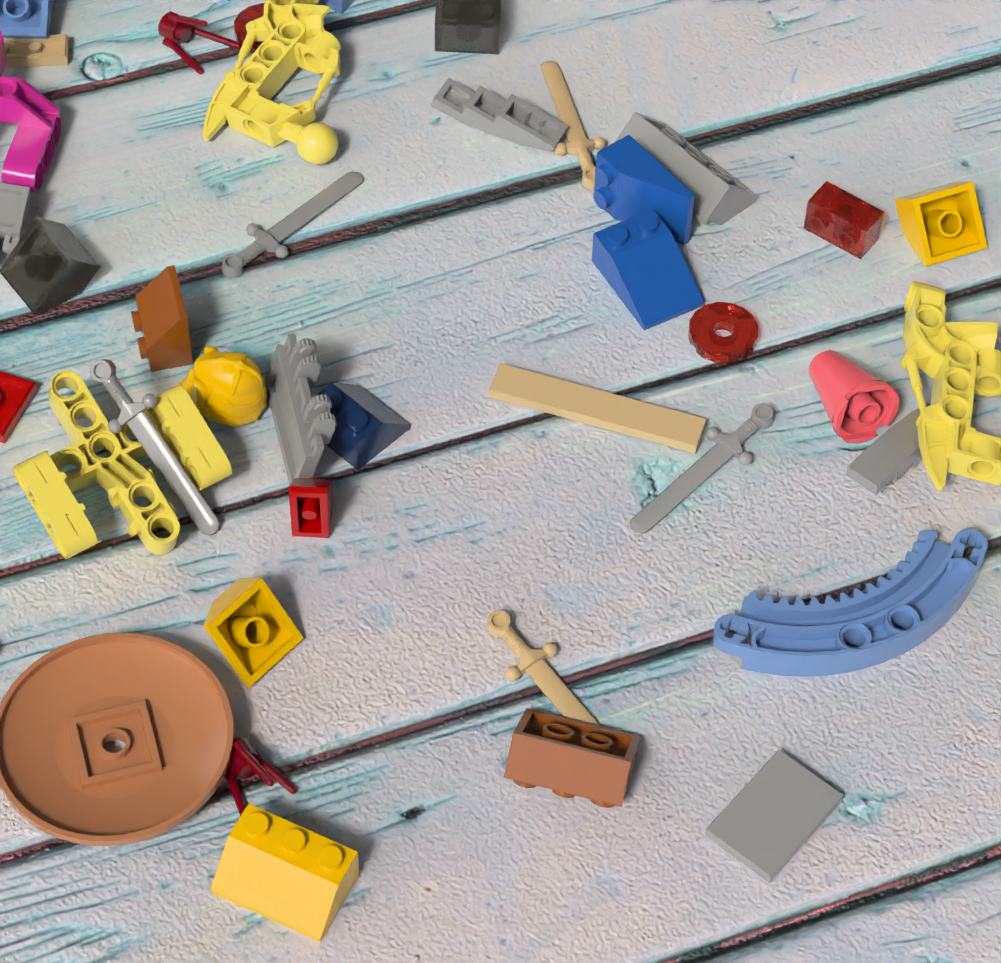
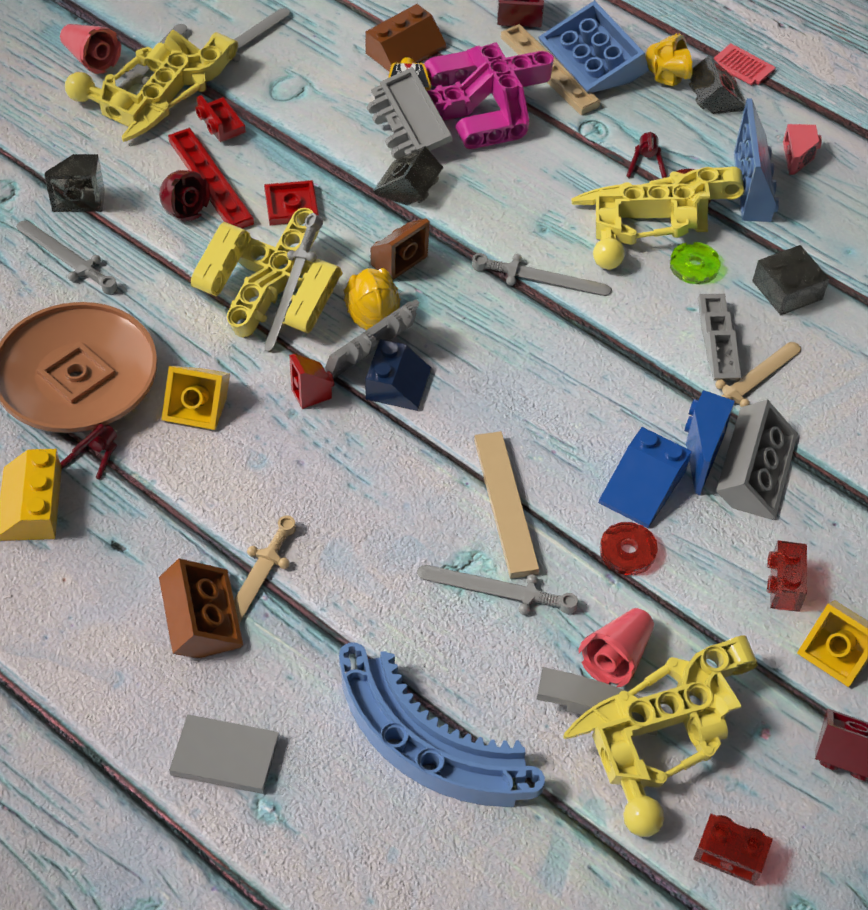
camera: 60 degrees right, 0 degrees up
(381, 95) = (693, 273): none -> clear neon green tile

